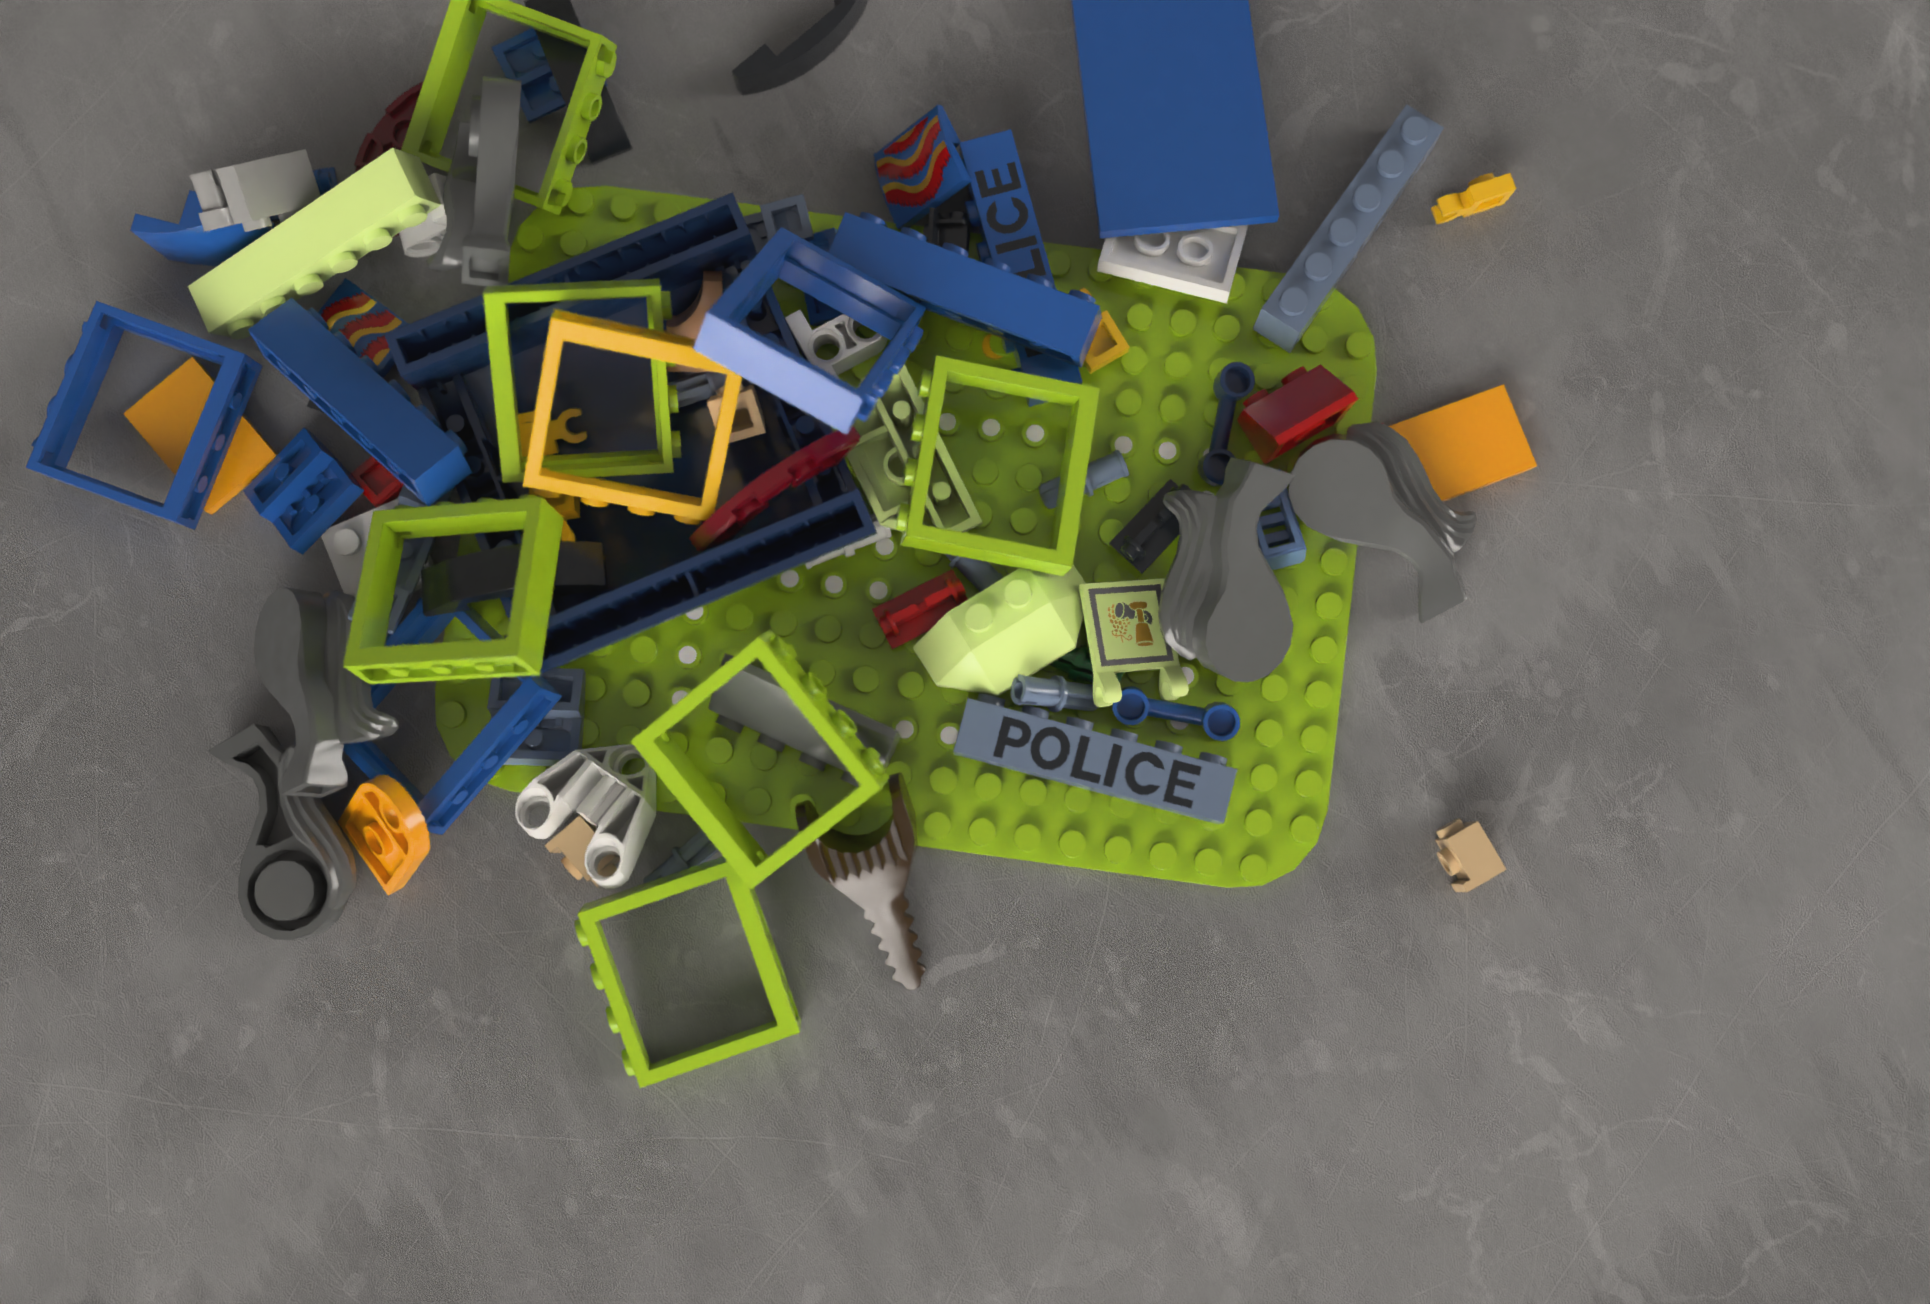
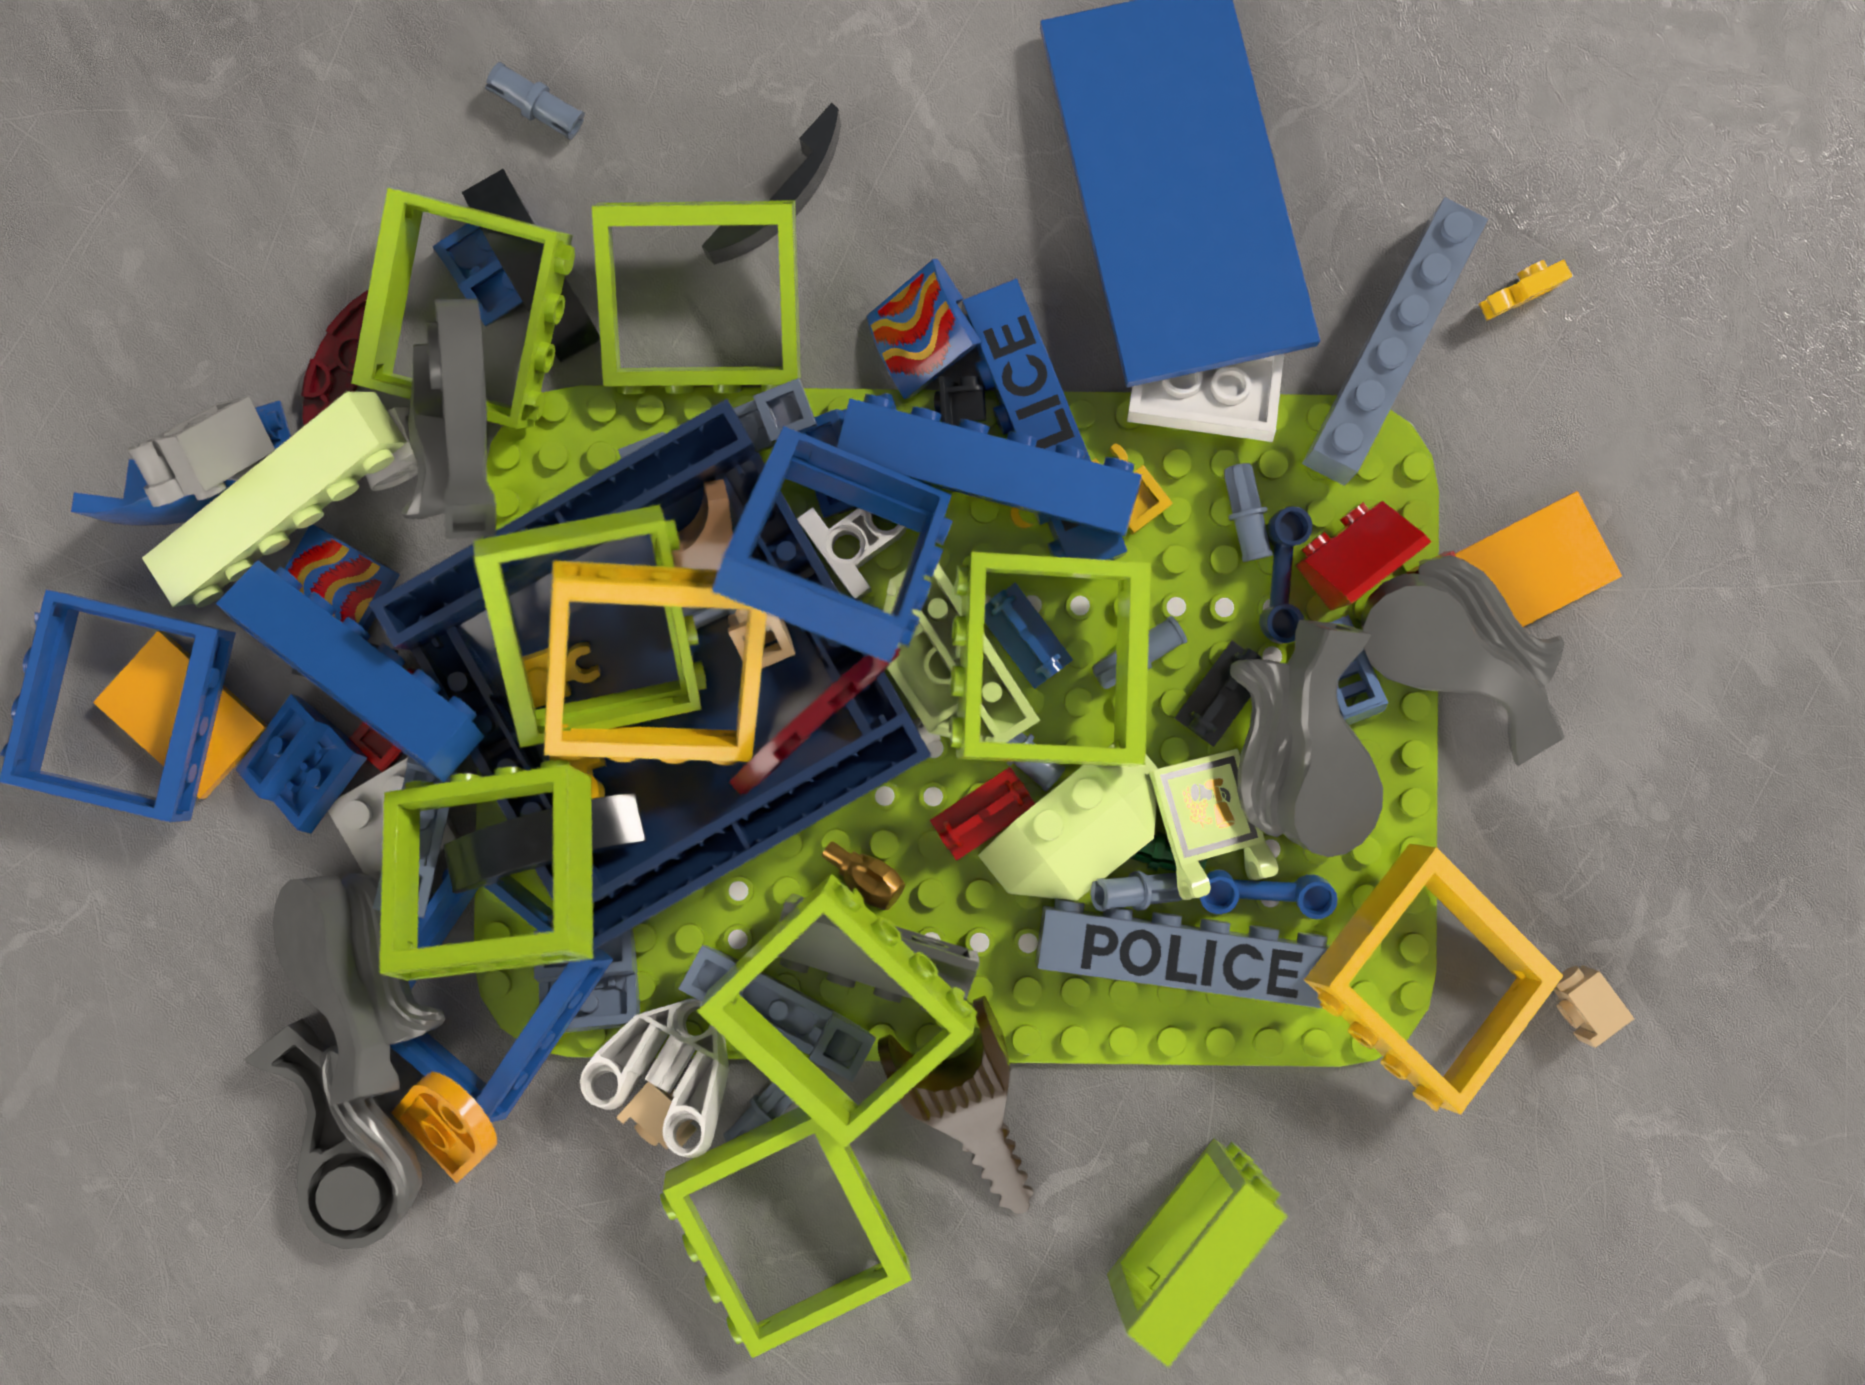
camera: 10 degrees left, 5 degrees up
(696, 188) = (693, 213): none -> lime window
(739, 786) = (804, 1021): none -> sand blue slope
(811, 651) = (871, 877): none -> pearl gold piece
(980, 451) = (1025, 635): none -> blue hinge
(1066, 1024) = (1194, 1249): none -> lime window
(1197, 365) = (1247, 512): none -> sand blue axle
(1374, 761) = (1350, 950): none -> yellow window

